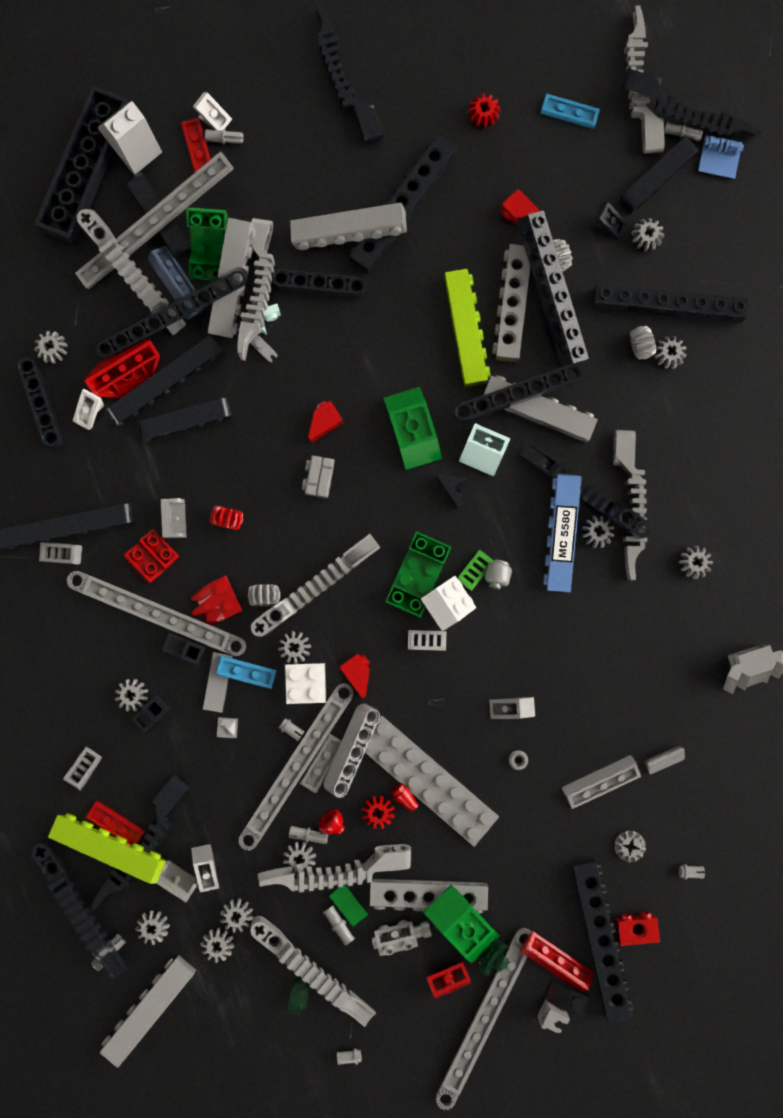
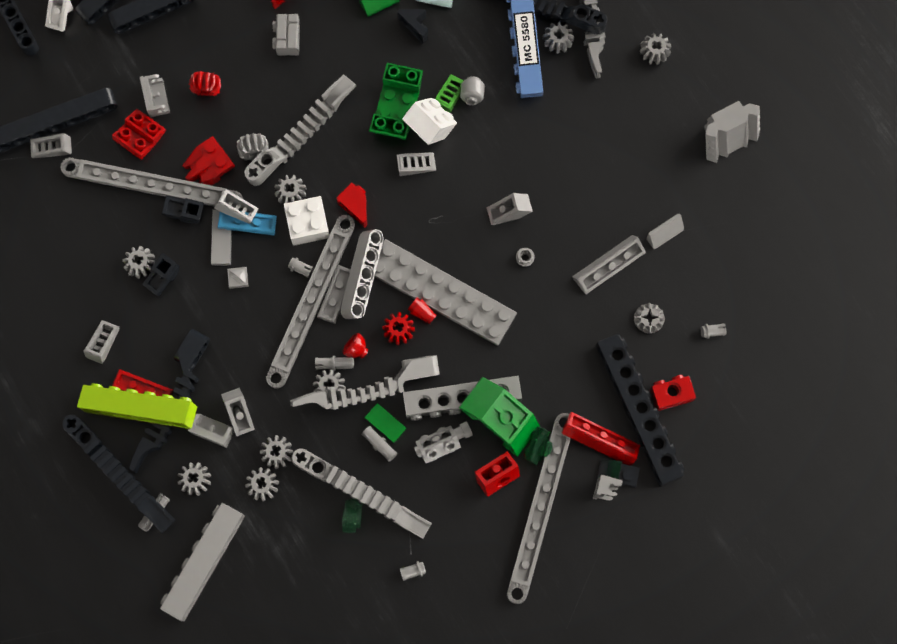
camera: 10 degrees left, 10 degrees down
(234, 648) = (227, 209): none -> light grey slope

